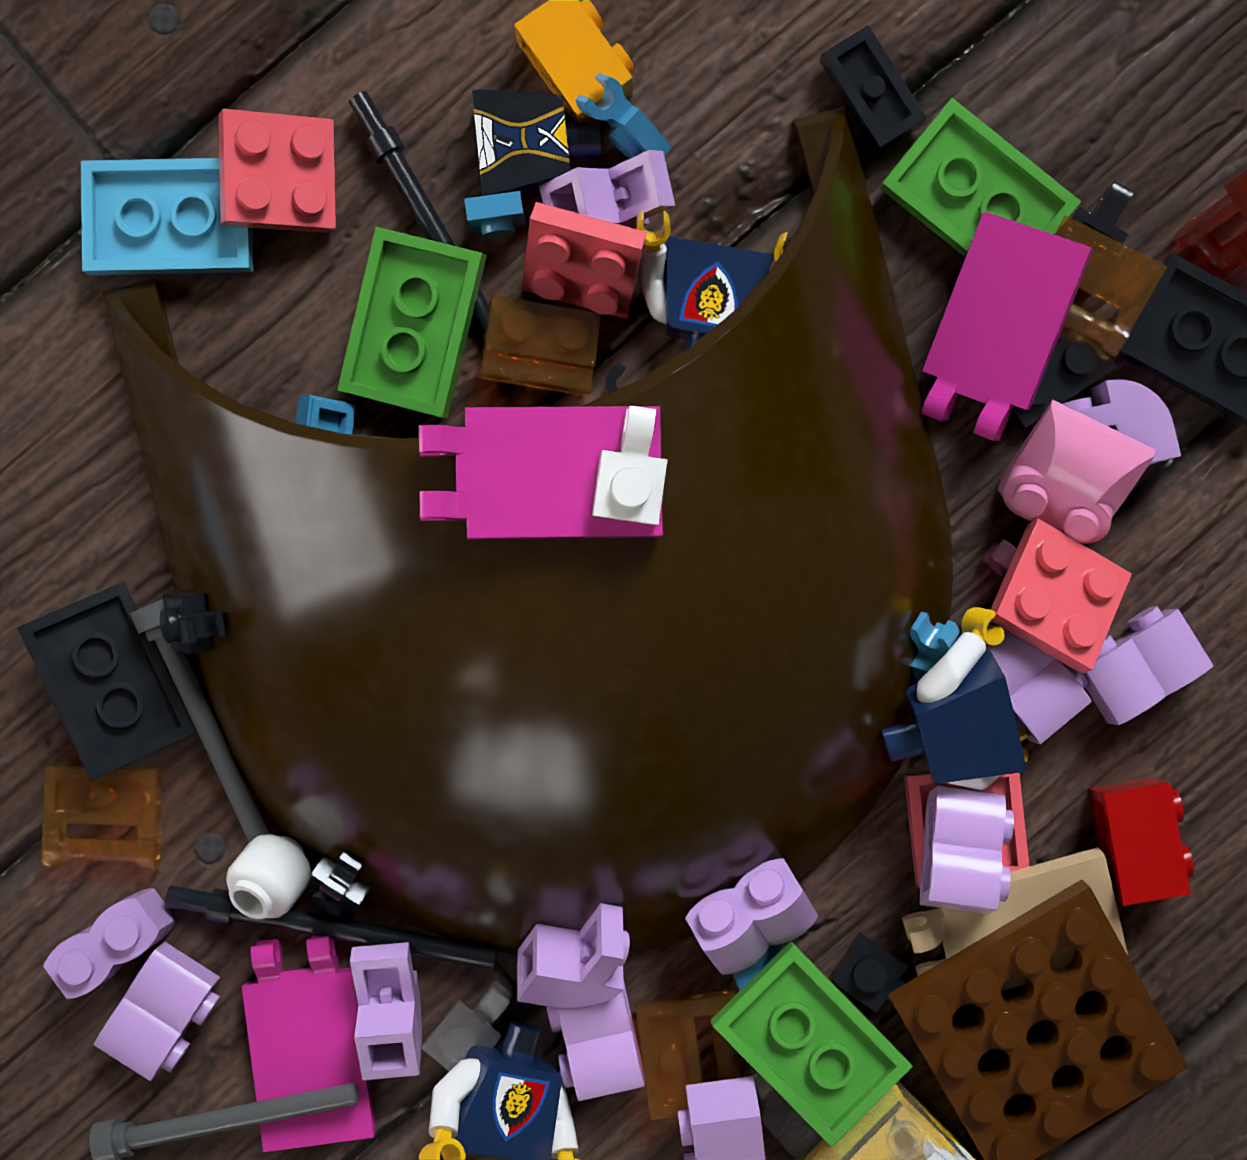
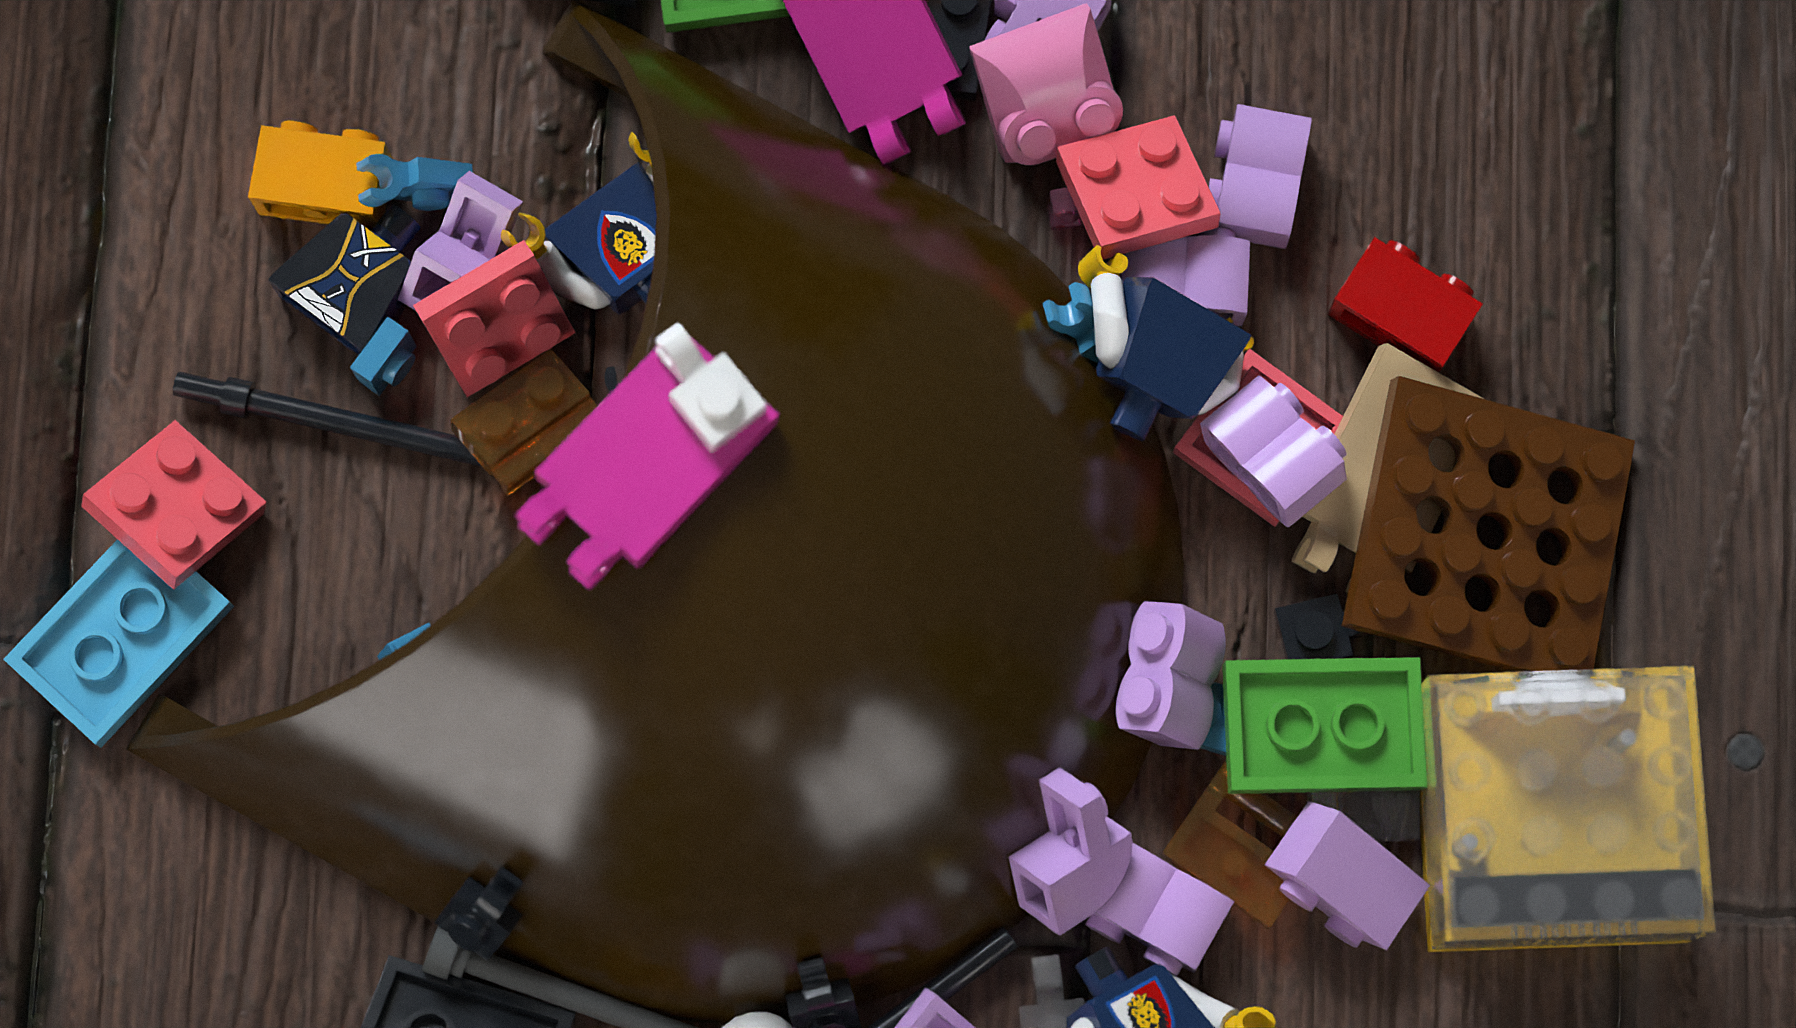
camera: 45 degrees left, 10 degrees down
(412, 322) = (407, 508): bright green plate -> none

